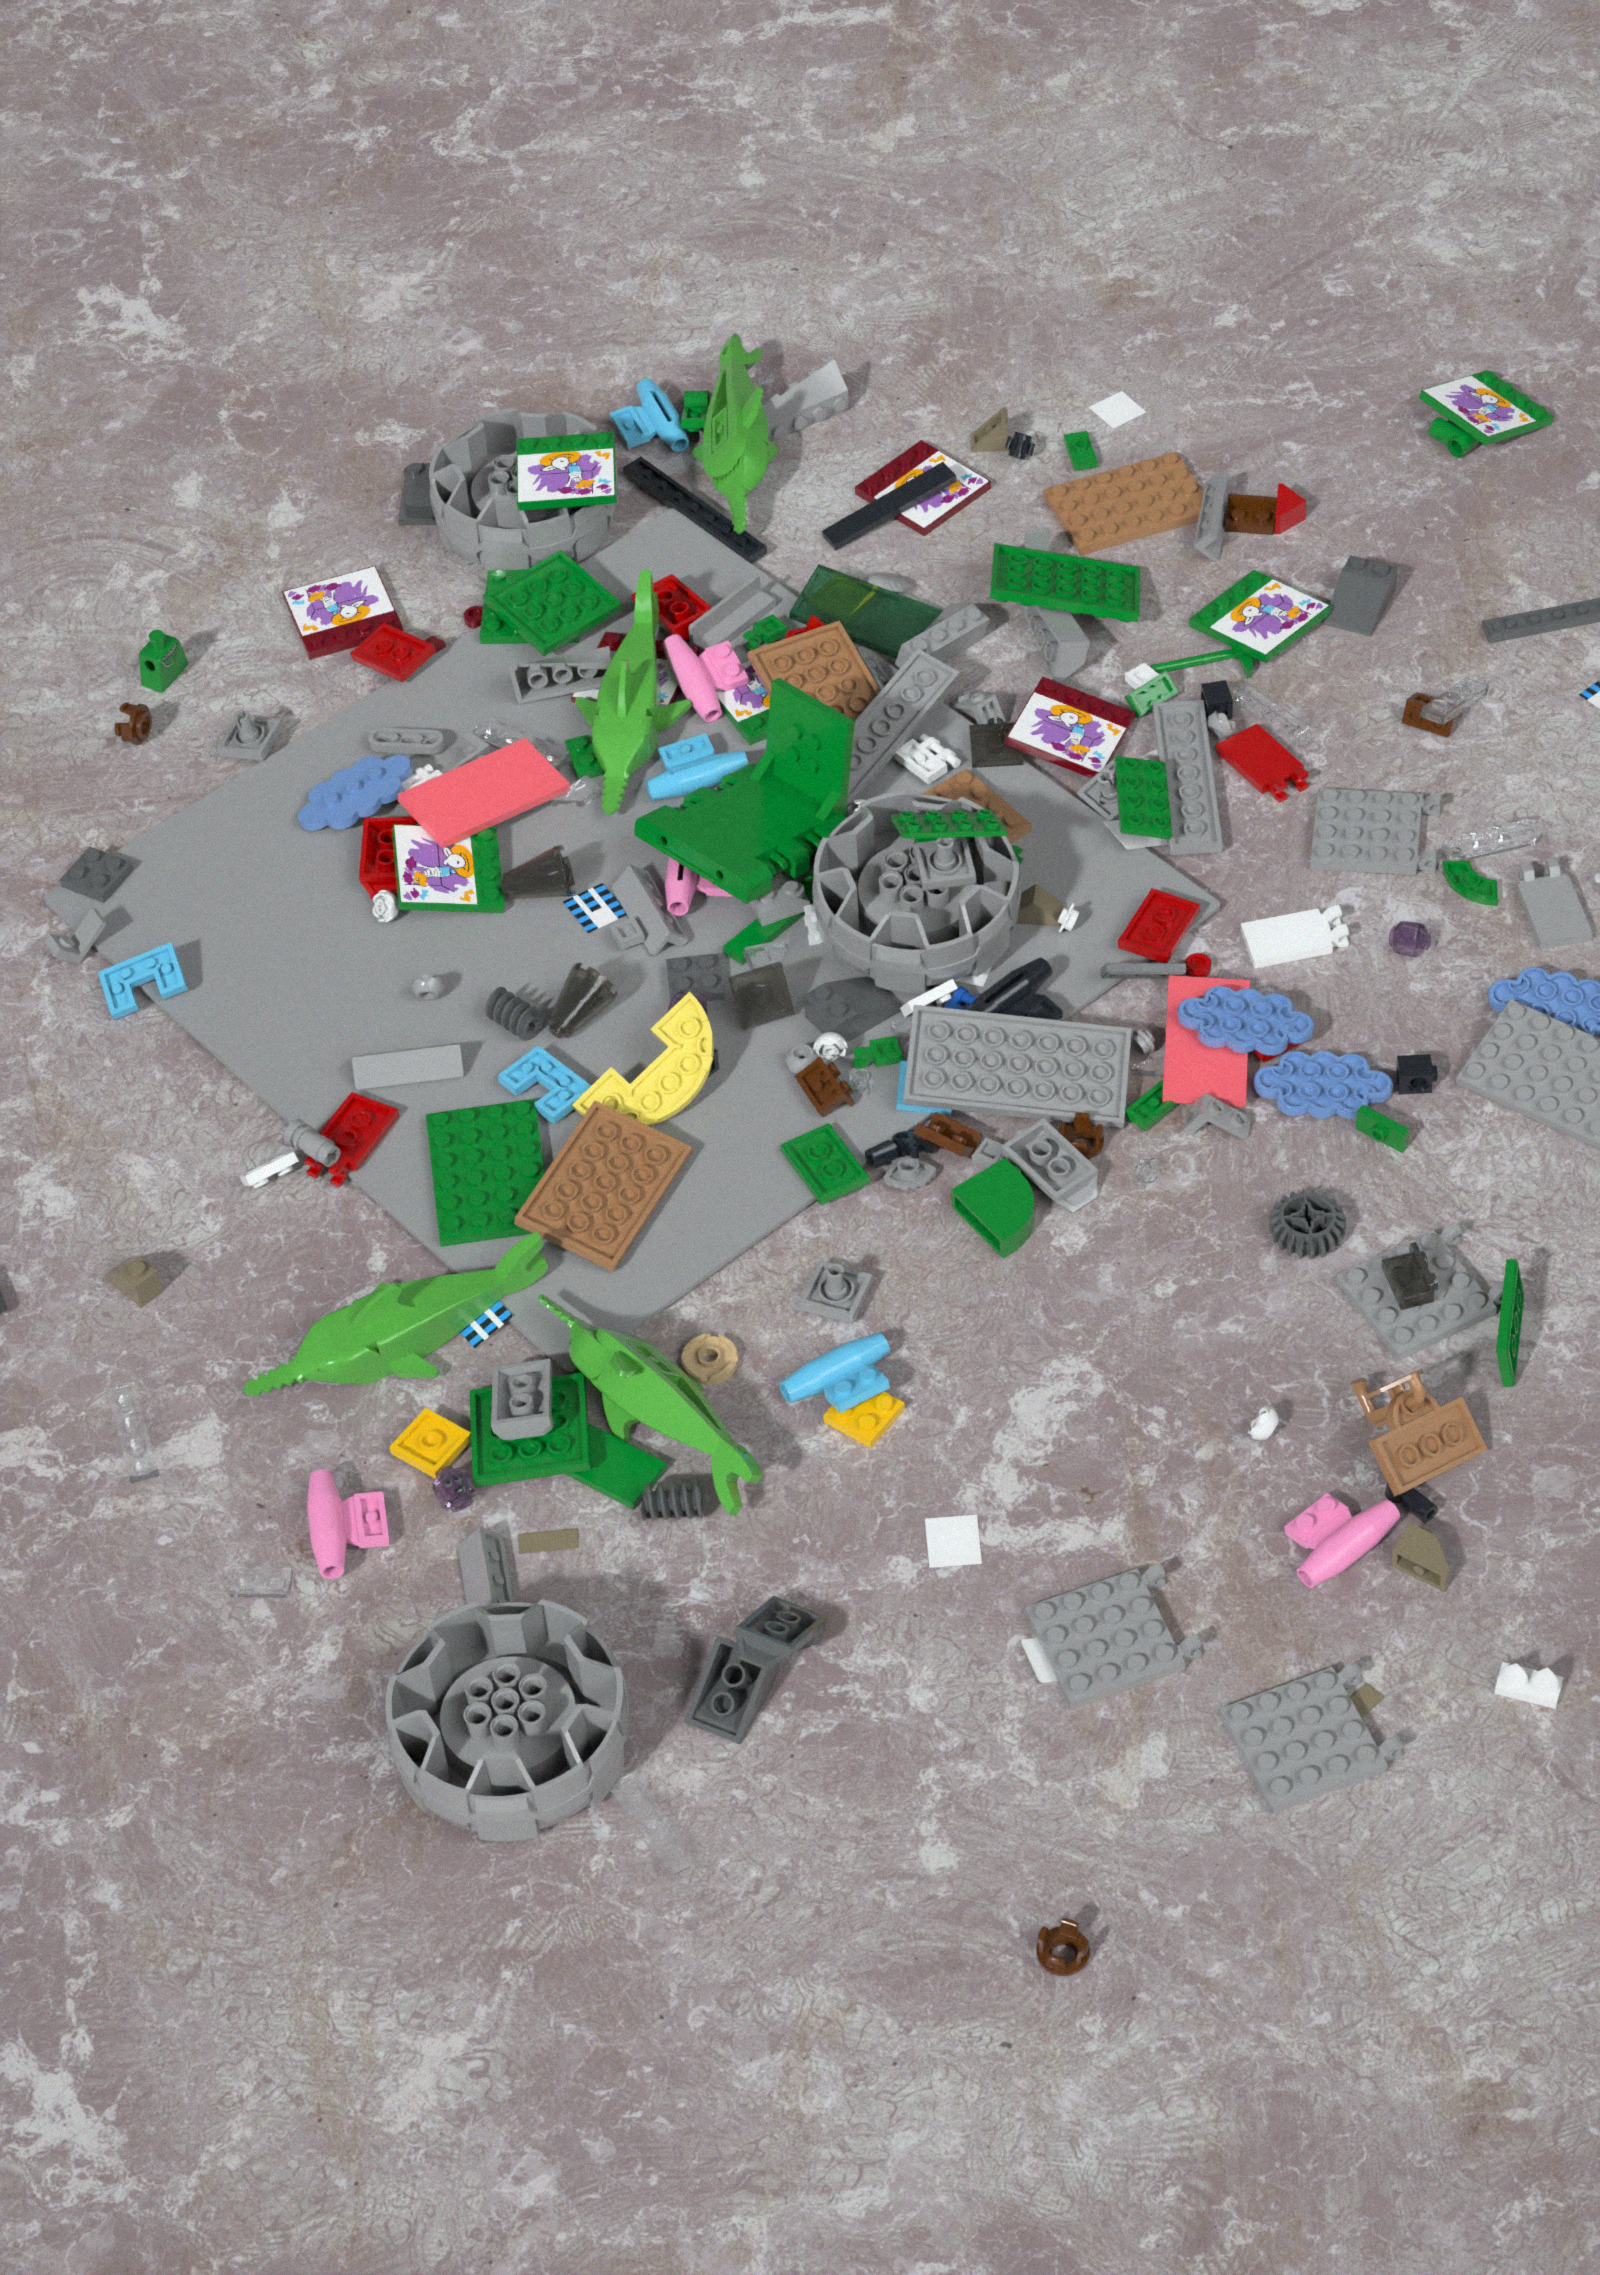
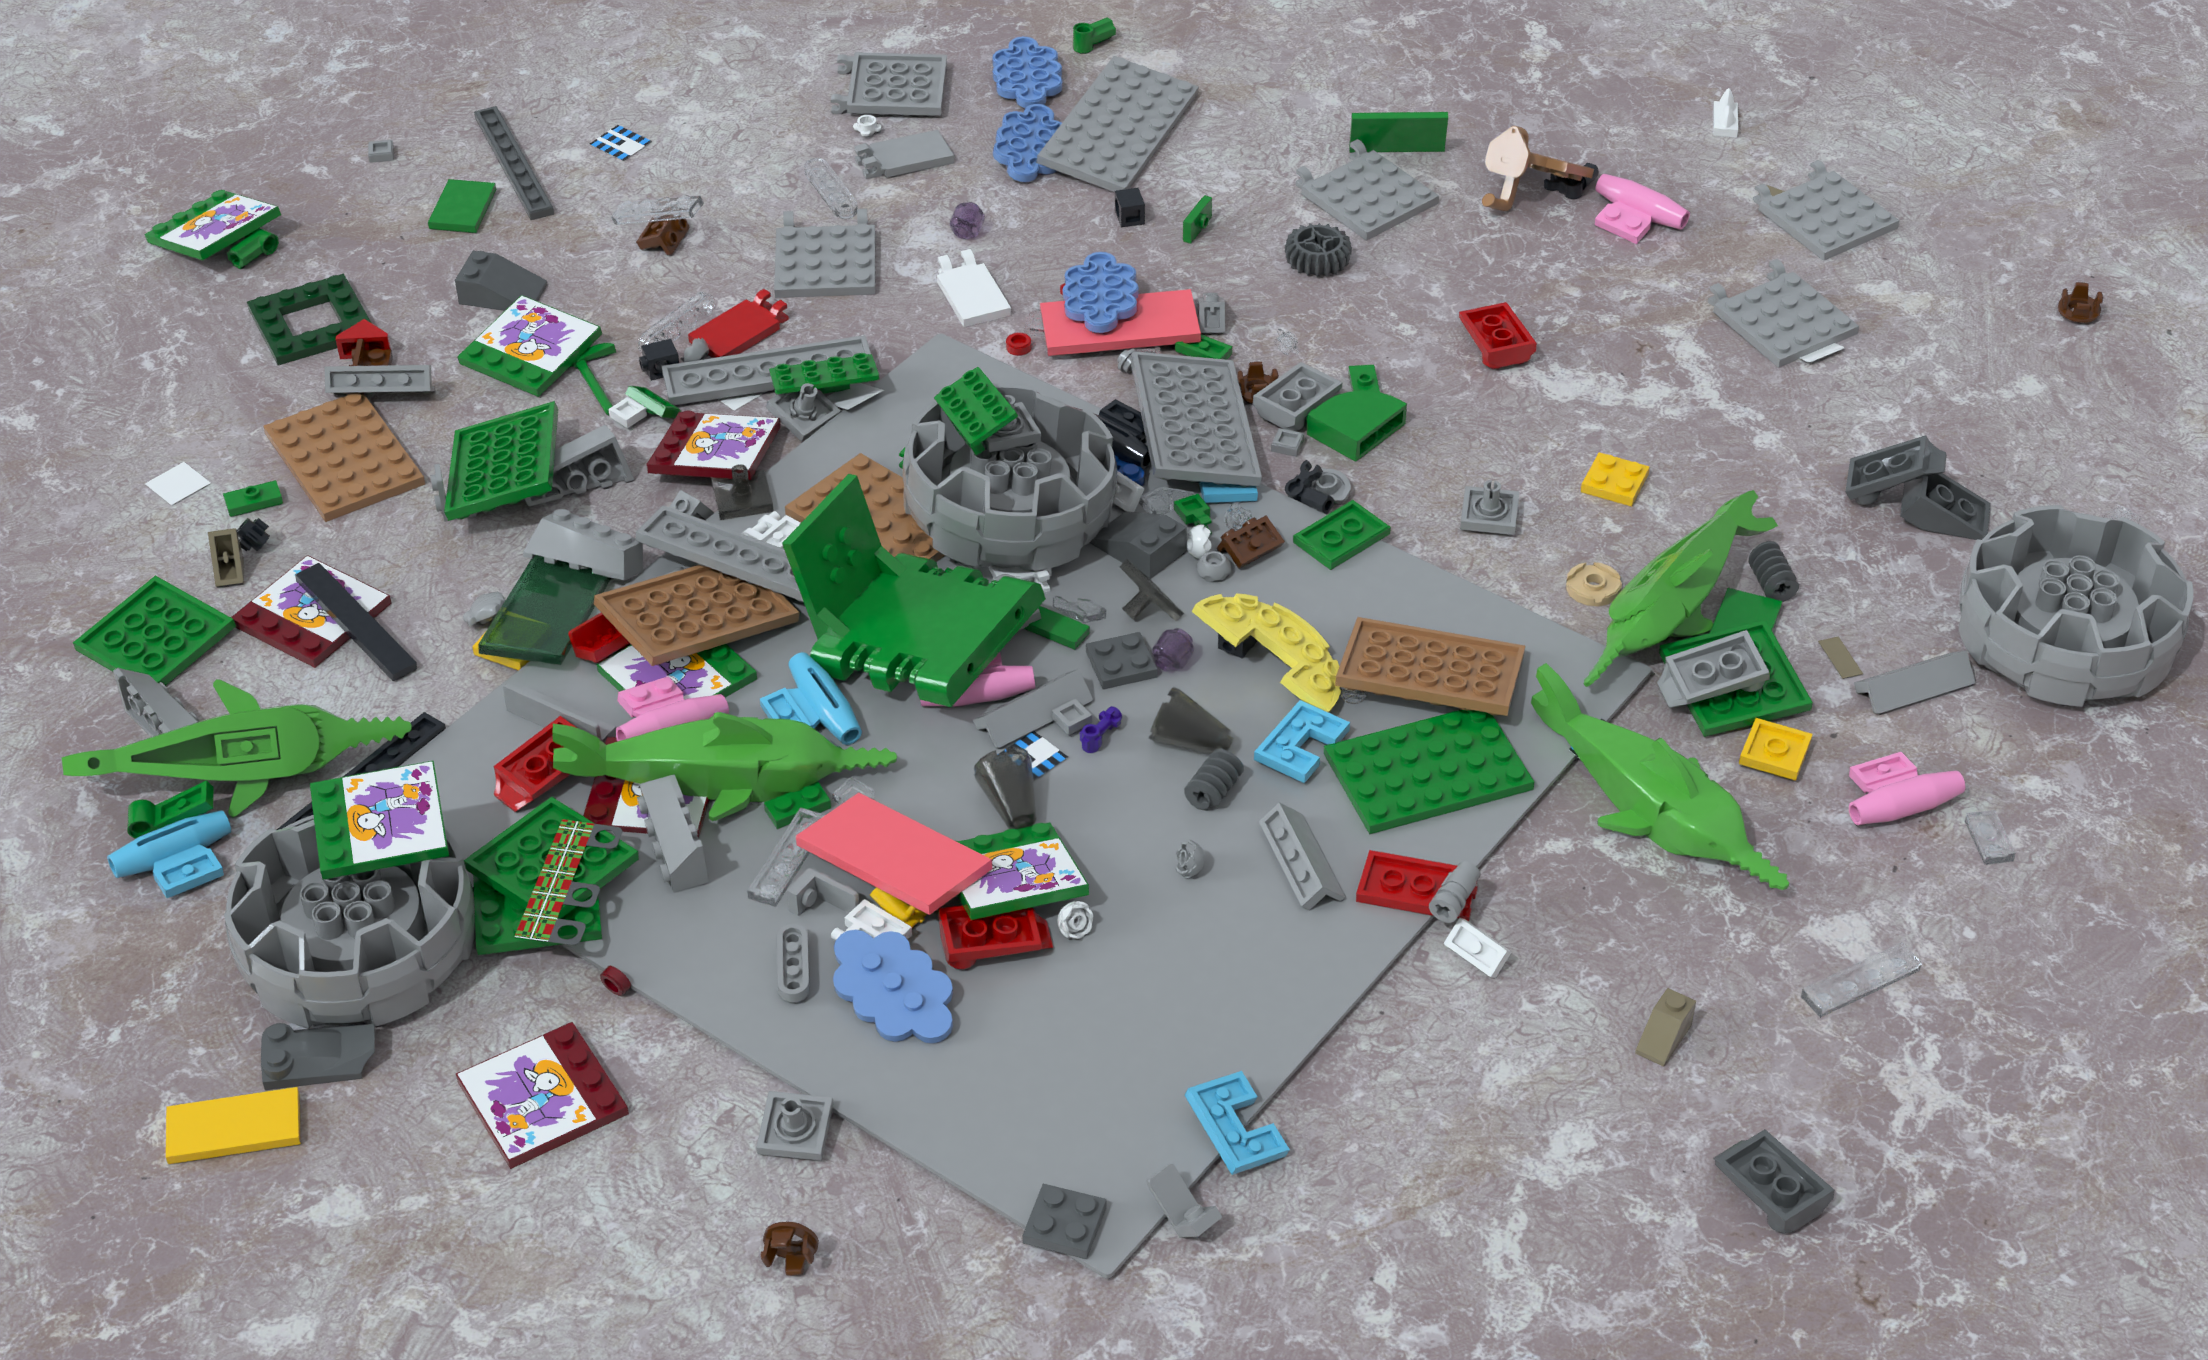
camera: 105 degrees left, 5 degrees down
(161, 661) = (666, 1248): green torso -> none
(375, 460) = (232, 1125): none -> yellow tile
(393, 652) = (633, 1009): red plate -> none
(454, 1489) = (1824, 718): clear purple head -> none
(473, 616) = (546, 960): dark red tile -> none
(516, 598) = (556, 885): none -> piece
(597, 945) = (1092, 734): none -> dark purple bar
(765, 630) = (578, 682): green plate -> none
(842, 1374) = (1590, 486): medium azure plate -> none
(914, 400) = (155, 632): none -> green plate
(950, 1135) = (1284, 460): reddish brown bracket -> none
(953, 1541) = (1725, 414): white sticker -> none
(1068, 1230) = (1363, 378): none -> green plate
(1120, 1349) = (1499, 335): none -> red slope
(1142, 970) = (1046, 362): tile -> none
(1159, 926) = (995, 357): red plate -> none
(1264, 1424) = (1533, 257): white plate -> none
(1322, 1084) = (1155, 254): medium blue plate -> none
(1376, 494) = (284, 347): none -> dark green plate
(1410, 1278) = (1371, 178): clear smoke bracket -> none
(1421, 1556) = (1637, 164): dark tan slope -> none
(1470, 884) = (884, 200): green tile -> none
(1507, 576) = (462, 206): none -> green tile

